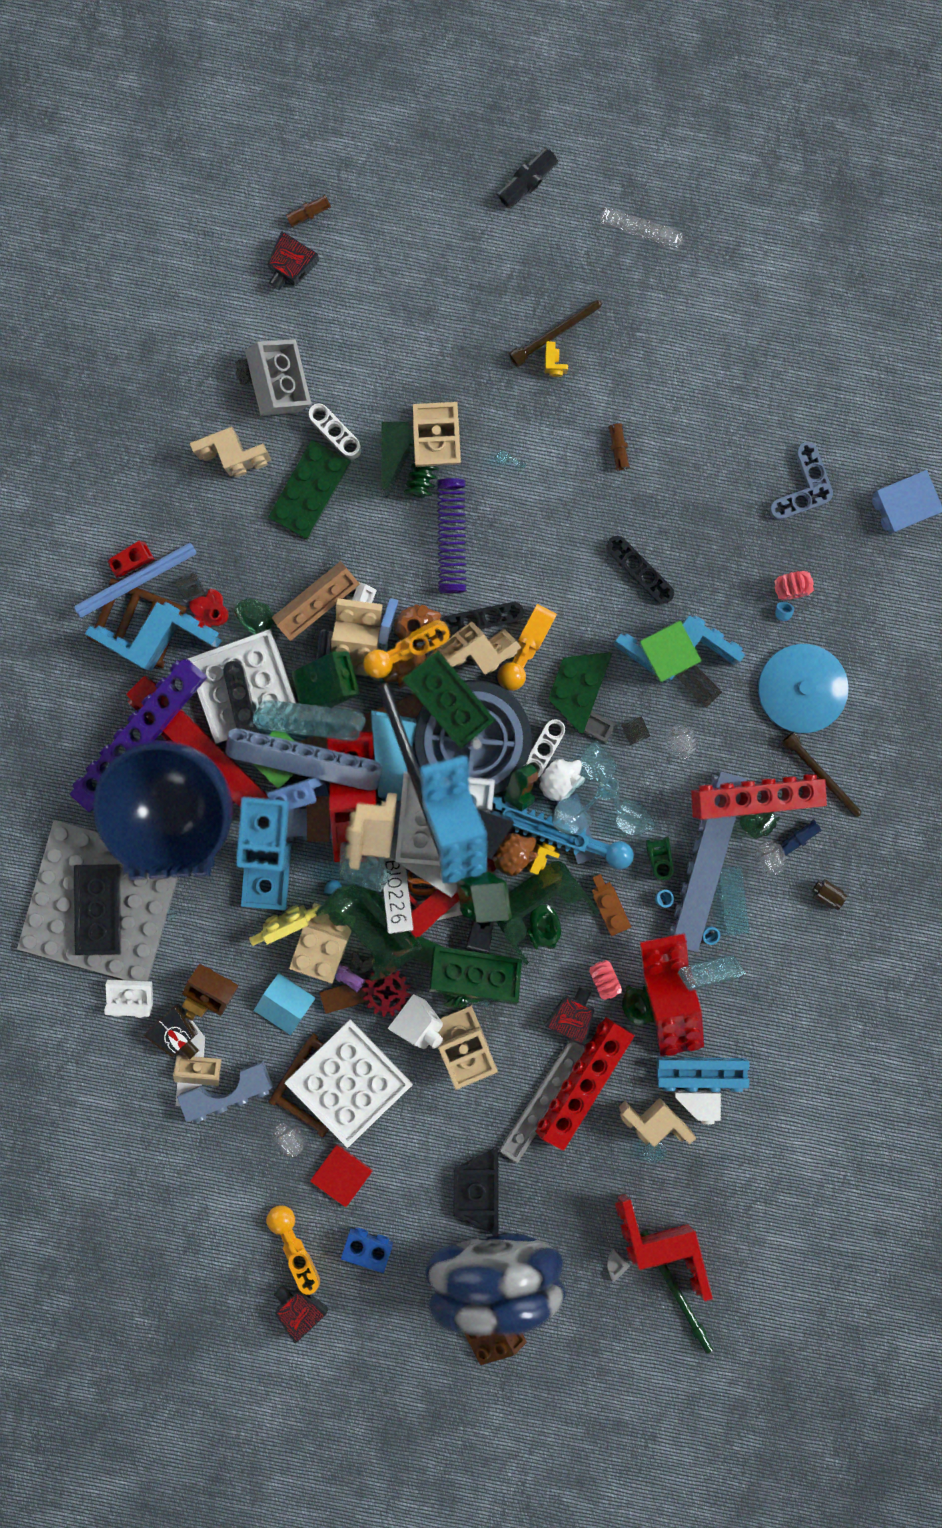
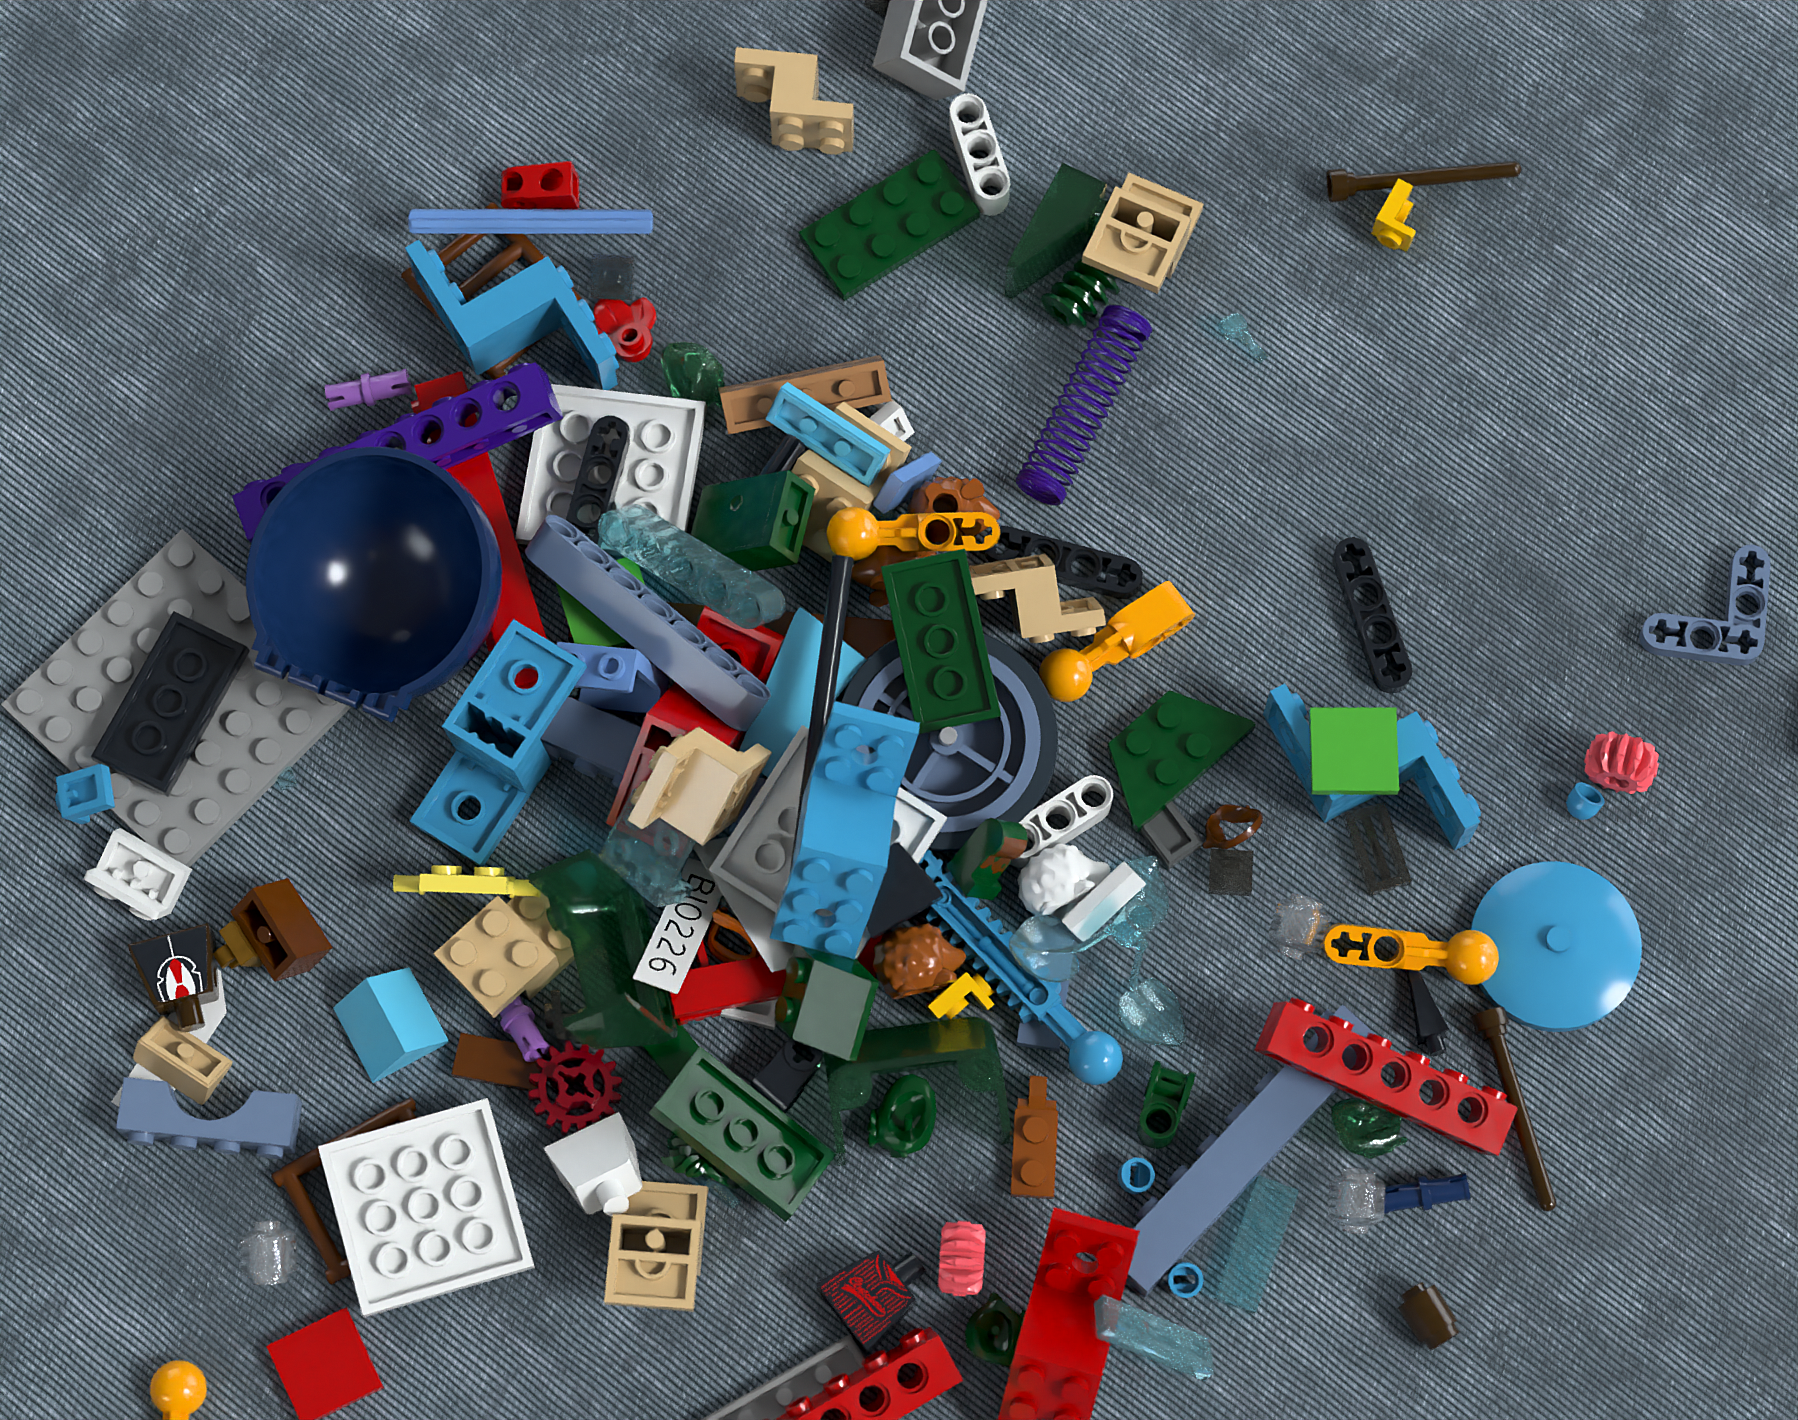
camera: 25 degrees right, 15 degrees down
(81, 973) = (84, 793): none -> dark azure bracket
(103, 704) = (368, 389): none -> medium lavender pin
(318, 820) = (615, 738): reddish brown tile -> none
(339, 619) = (828, 434): none -> medium azure tile
(586, 780) = (1103, 901): none -> white tile
(619, 446) = (1435, 403): reddish brown pin -> none
(622, 702) = (1232, 814): none -> reddish brown piece
(641, 227) = (1645, 86): clear beam -> none
(762, 755) = (1428, 1019): none -> black piece
(766, 716) = (1467, 956): none -> light orange beam

